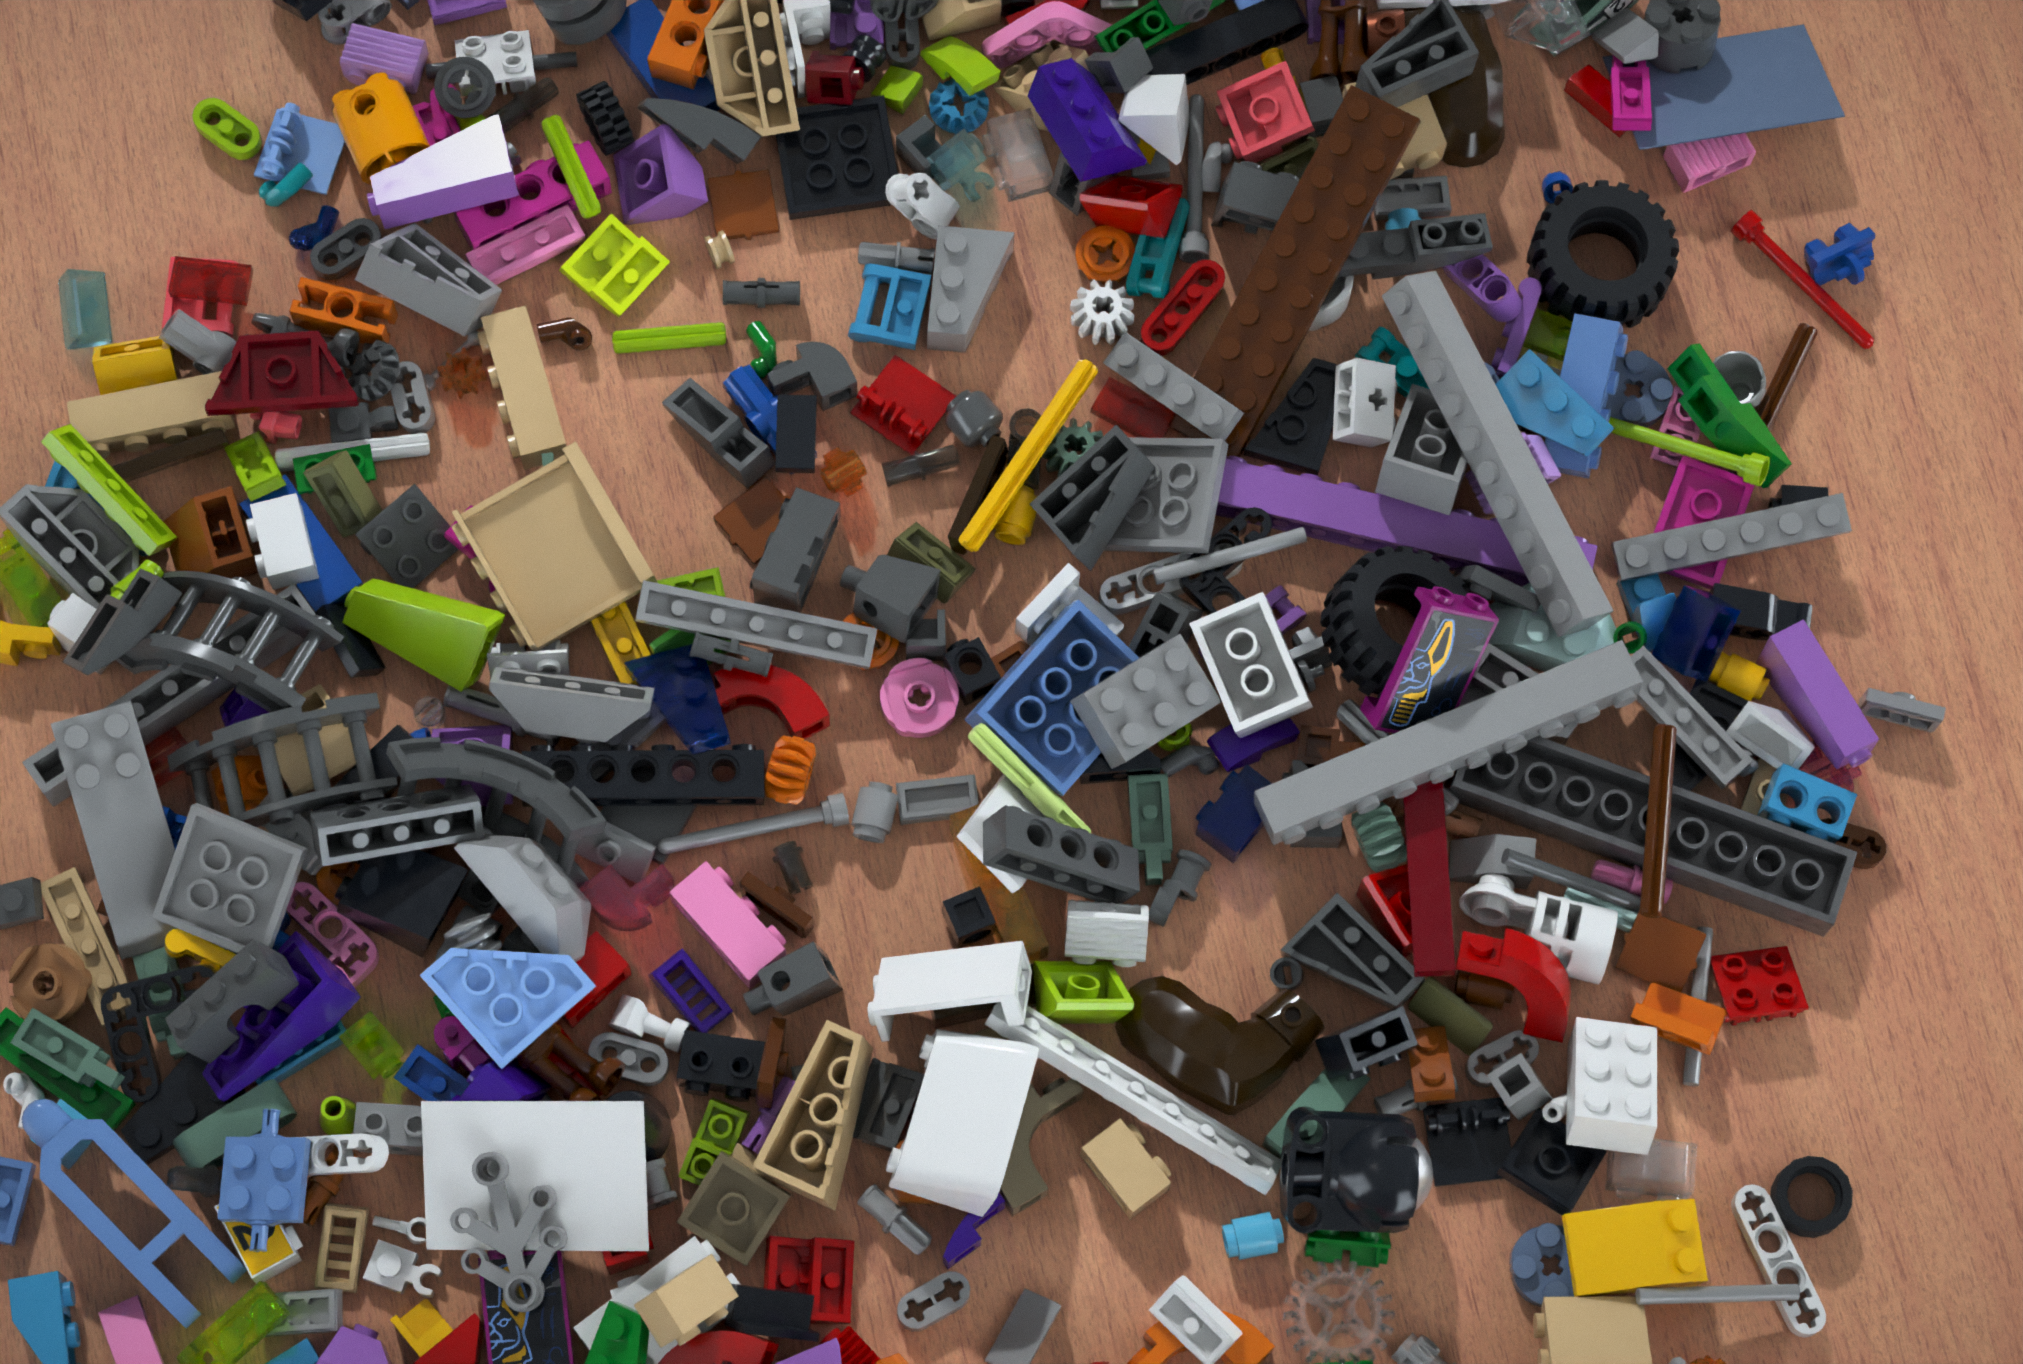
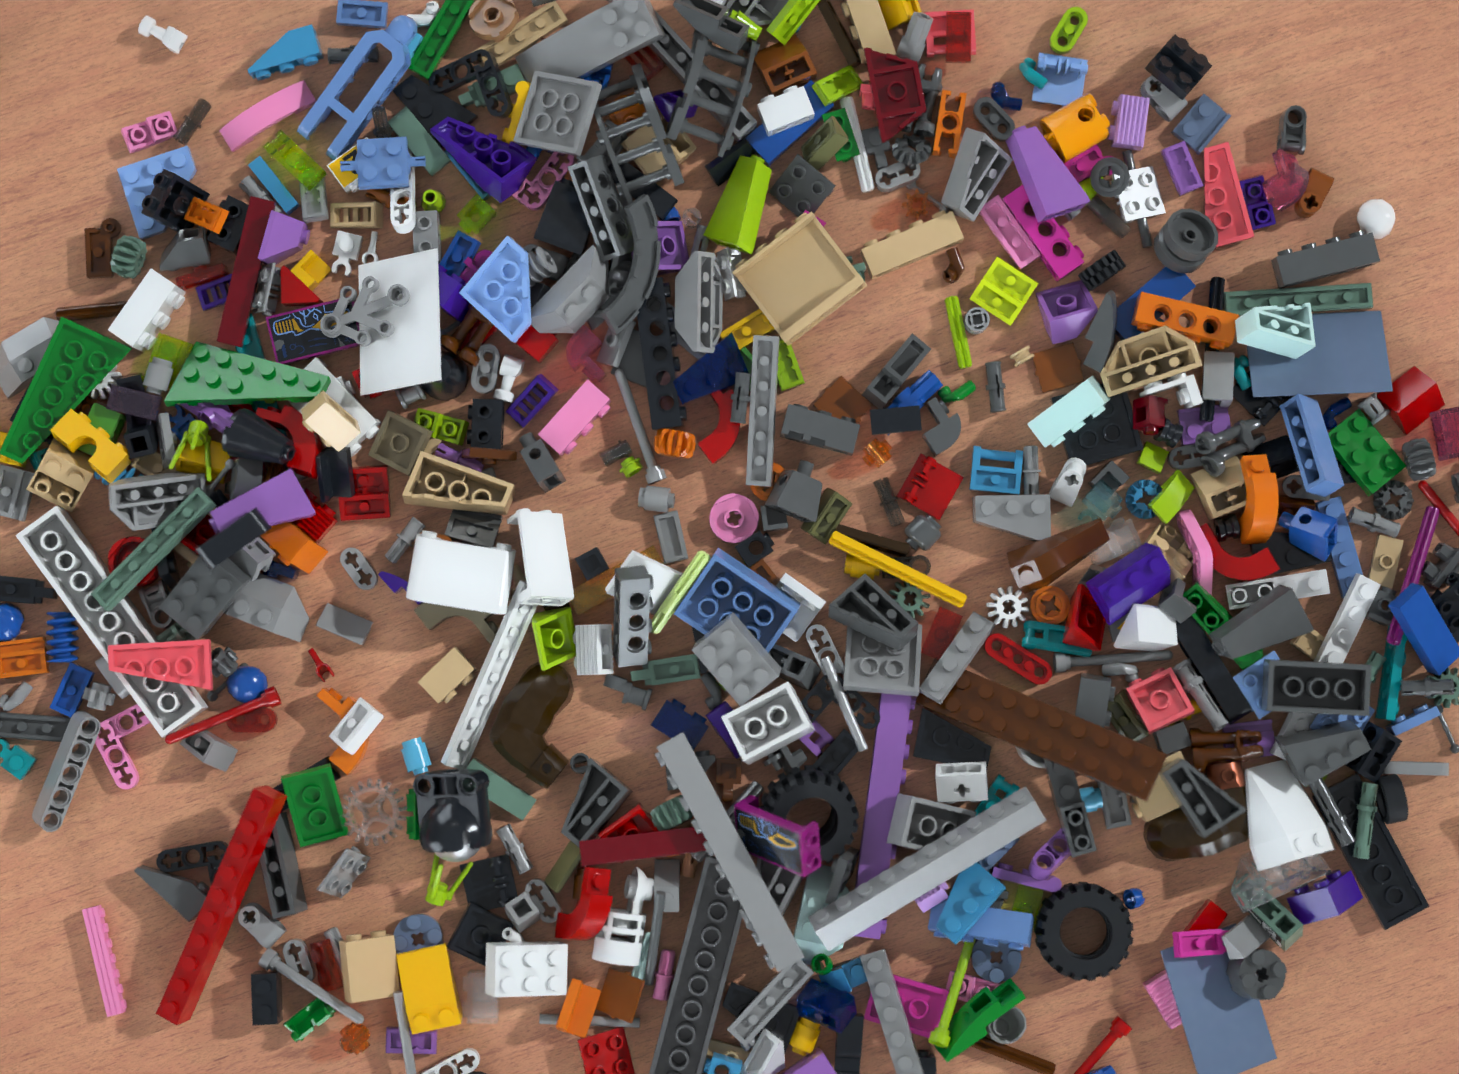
camera: 90 degrees right, 15 degrees up
(65, 1051) = (450, 34): sand green hinge -> none
(68, 1234) = (339, 55): none -> dark grey pin
(250, 978) = (476, 114): dark grey arch -> none
(571, 166) = (1062, 253): lime axle -> none
(655, 314) = (973, 324): none -> light grey wheel
(778, 904) = (591, 445): reddish brown plate -> none
(817, 182) = (1069, 412): none -> light aqua wedge
(817, 847) = (631, 466): none -> lime plate
(1035, 242) = (1051, 557): none -> reddish brown wedge
(1270, 52) = (1194, 685): none -> light grey pin
(1302, 580) = (837, 753): none -> black plate
(1365, 1043) = (538, 815): black brick -> none
(1431, 1065) = (531, 855): dark orange plate -> none
(1477, 1223) = (437, 890): none -> lime plant
(1658, 821) = (707, 988): reddish brown axle -> none
(1717, 1318) = (421, 1042): none -> medium lavender plate

